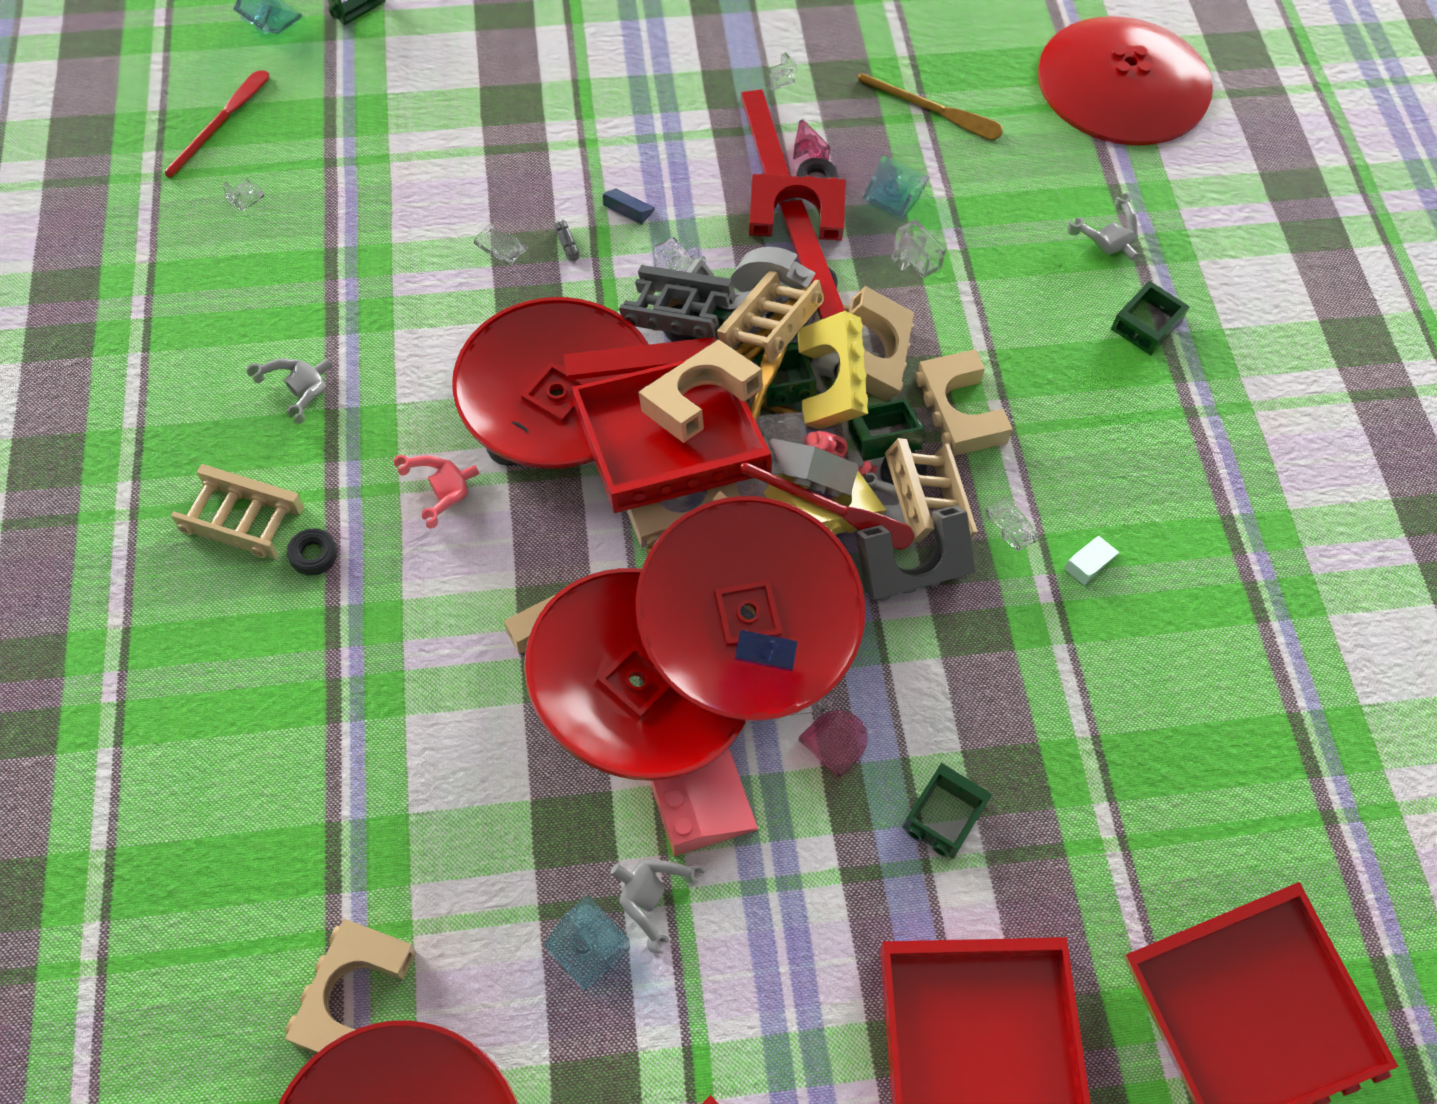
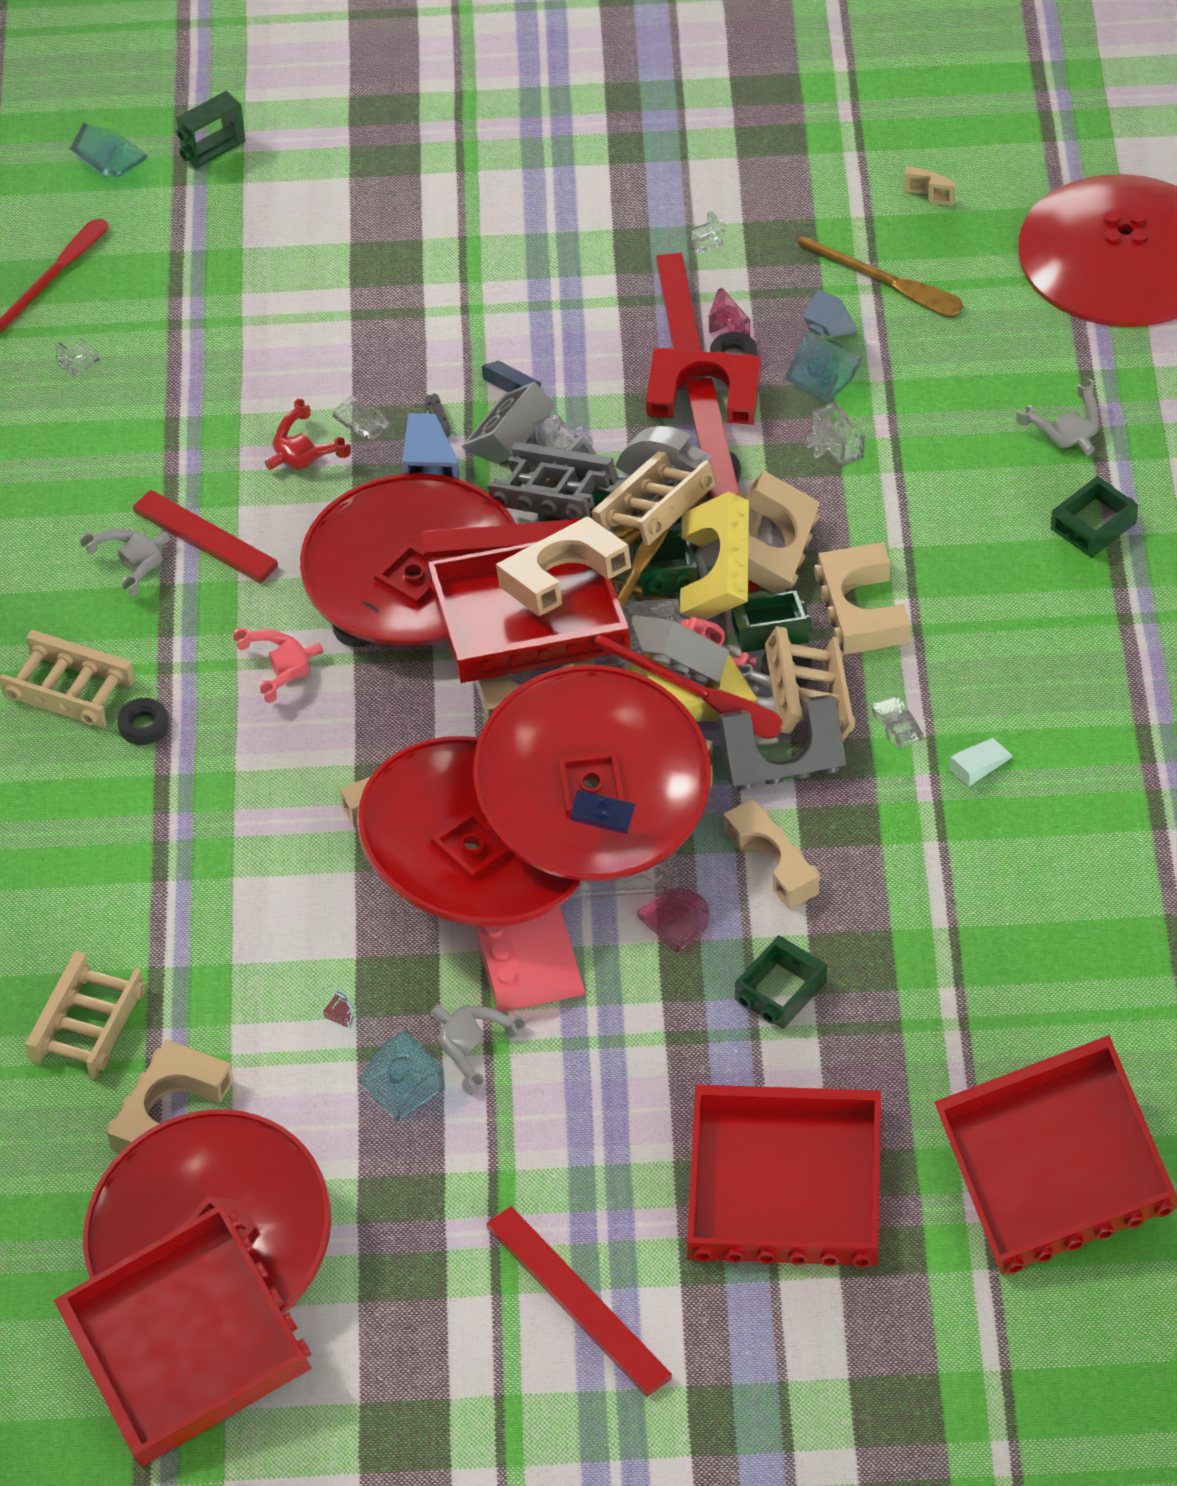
camera: 10 degrees right, 10 degrees down
(241, 866) = (67, 995): none -> tan fence
(365, 361) = (205, 536): none -> red tile
(445, 276) = (299, 450): none -> red piece
(519, 863) = (340, 1010): none -> clear light blue tile
(562, 272) = (428, 447): none -> medium blue slope
(631, 246) = (509, 423): none -> light grey slope
(897, 642) = (753, 829): none -> tan arch
(900, 141) = (828, 316): none -> sand blue slope
(966, 29) = (937, 187): none -> tan slope

